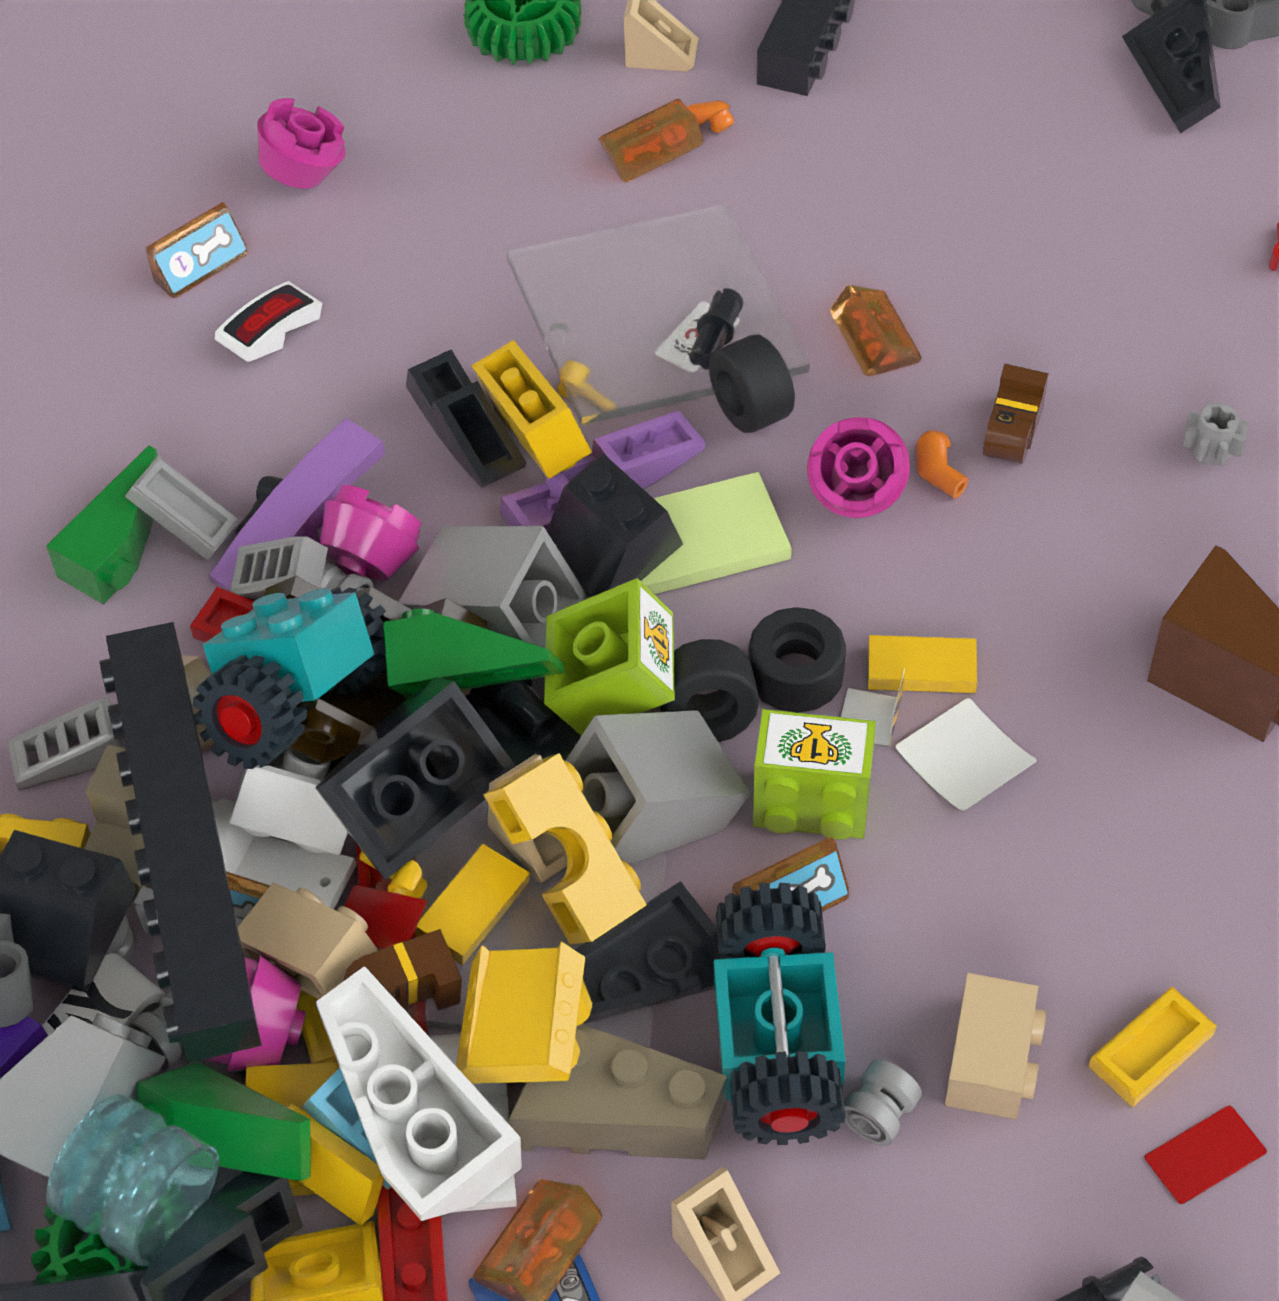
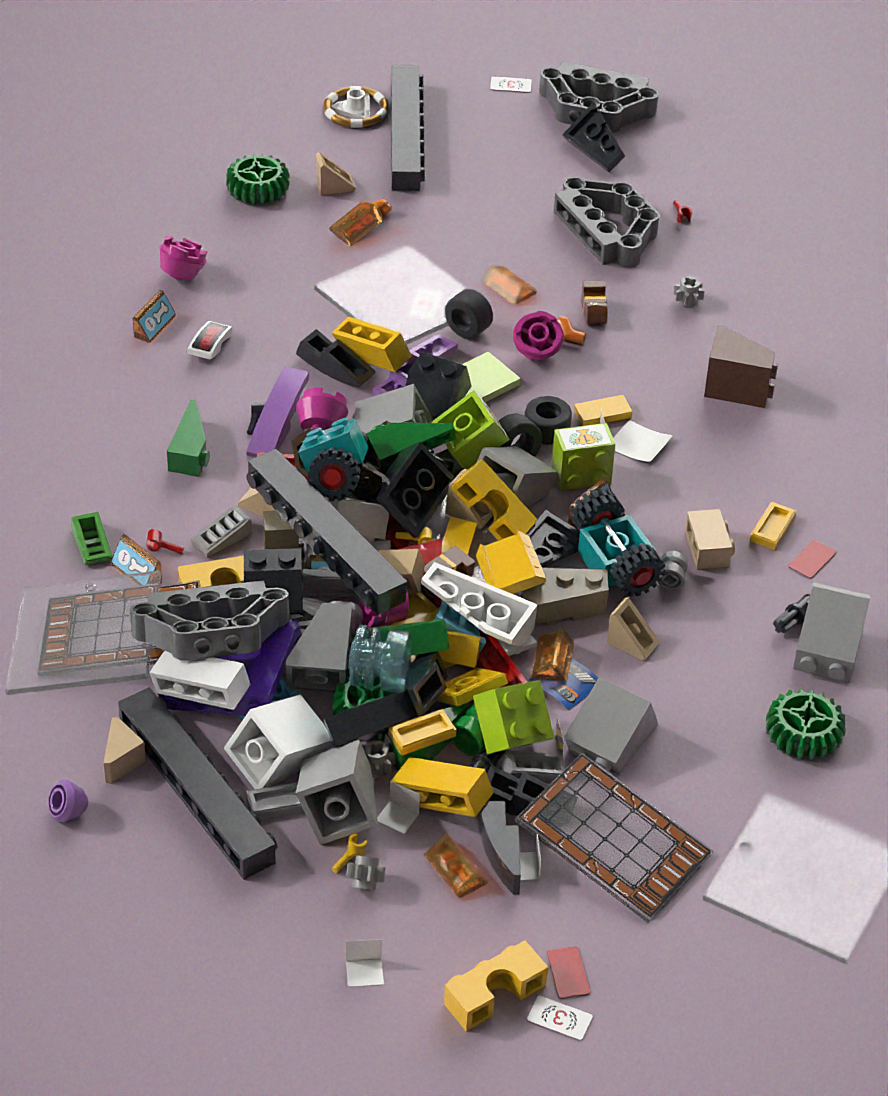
camera: 25 degrees left, 10 degrees down
(182, 508) = (221, 423): light grey tile -> none
(306, 562) = (295, 422): light grey slope -> none
(716, 326) = (437, 294): black axle -> none
(1083, 235) = (582, 208): none -> dark grey brick

